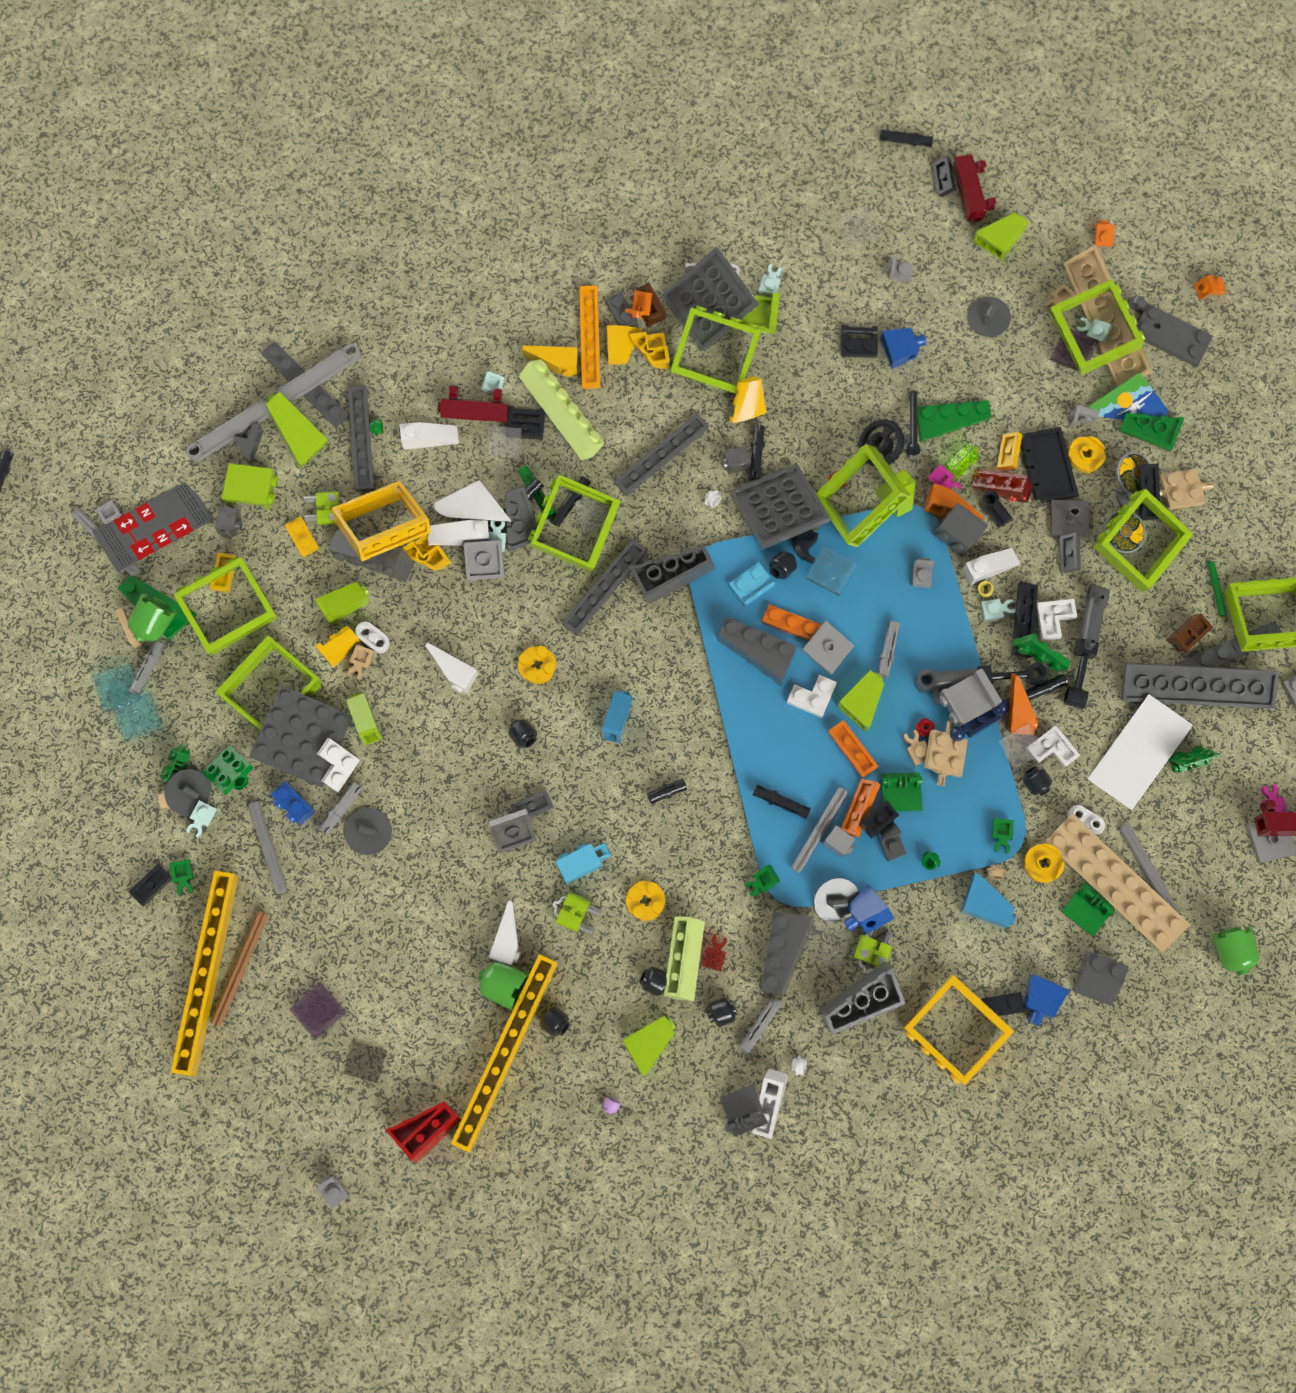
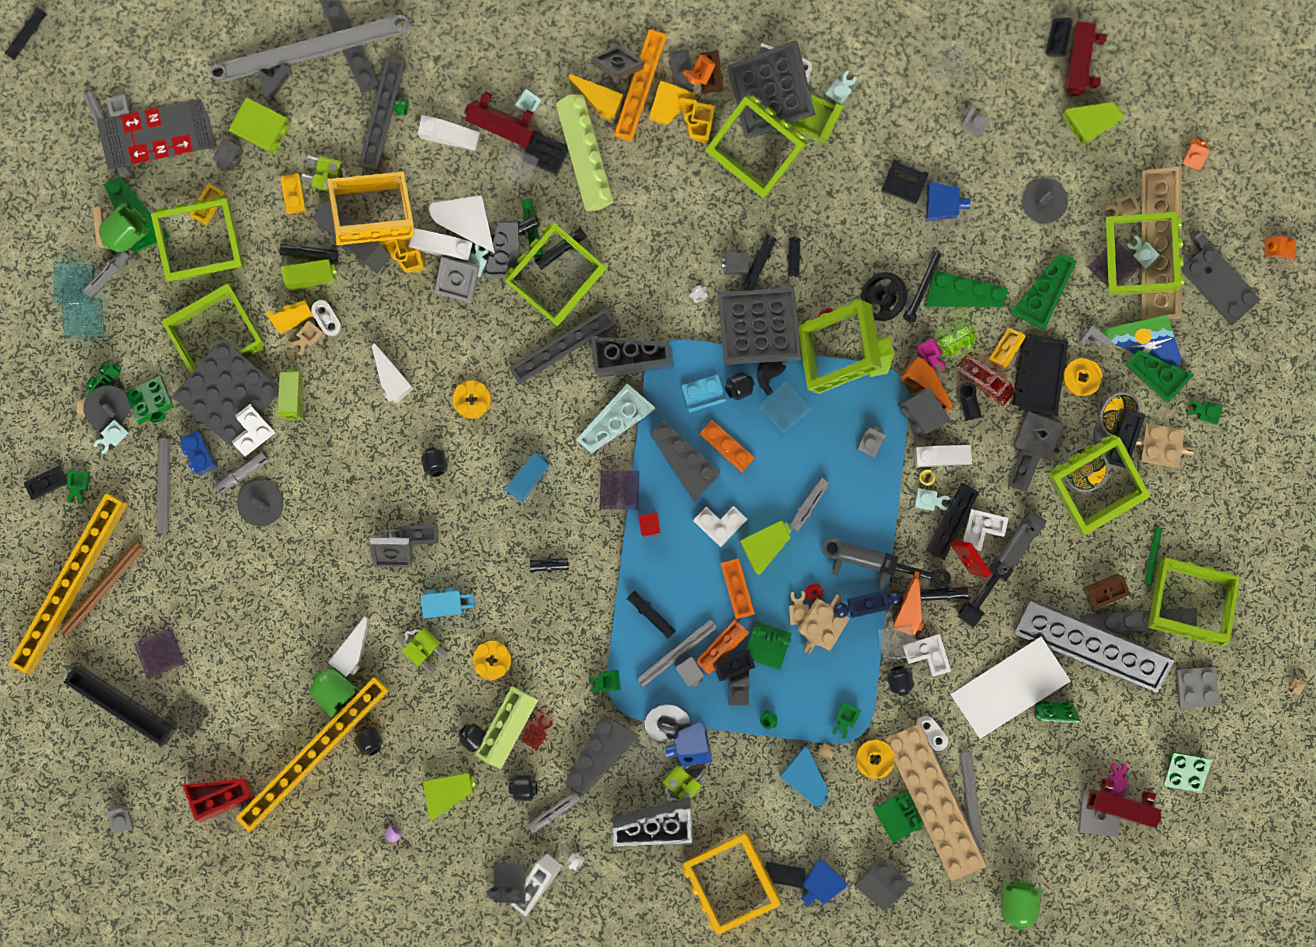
camera: 20 degrees right, 10 degrees up
(296, 430) = (322, 90): lime slope -> none
(296, 1074) = (120, 705): none -> black brick
(333, 584) = (308, 252): none -> black pin
(563, 323) = (617, 64): none -> flat silver tile
(661, 454) = (666, 232): dark grey plate -> none
(679, 633) = (619, 415): none -> light aqua wing
(707, 698) = (619, 490): none -> clear purple plate
(748, 400) = (770, 207): yellow slope -> none
(748, 719) = (649, 524): none -> red piece
(786, 438) = (794, 257): none -> black pin
(827, 647) = (751, 482): light grey plate -> none
(969, 698) = (863, 582): light grey panel -> none
(1023, 393) = (1041, 299): none -> green wing
(1039, 651) = (943, 550): green wing -> none
(1059, 642) = (970, 558): none -> red plate
(1209, 446) = (1207, 412): none -> green plate

